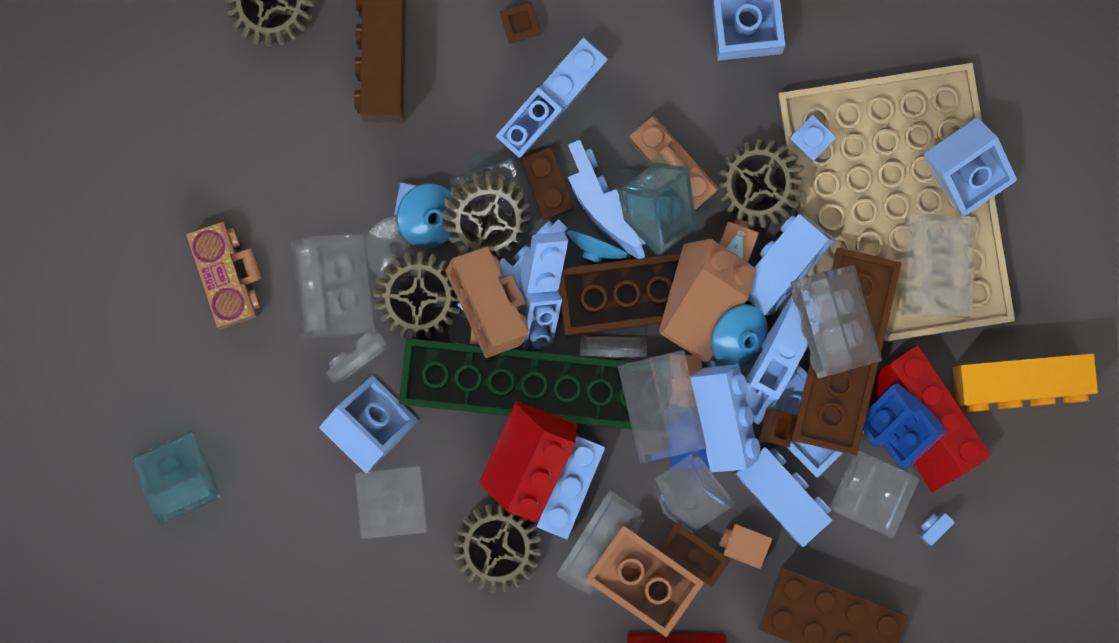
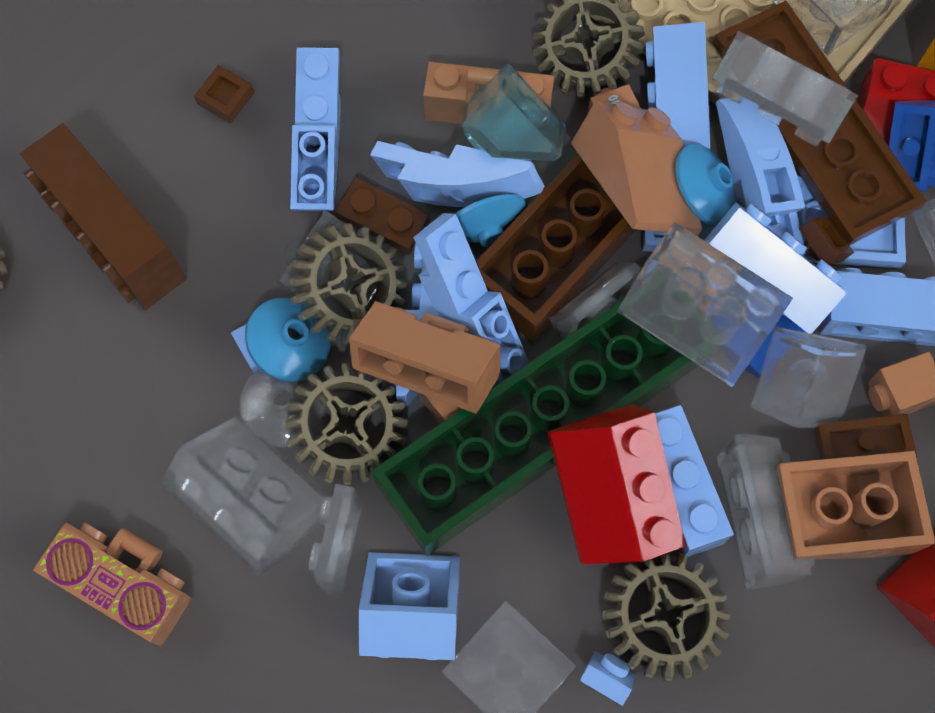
camera: 45 degrees left, 15 degrees down
(438, 552) = (609, 676): none -> light blue plate

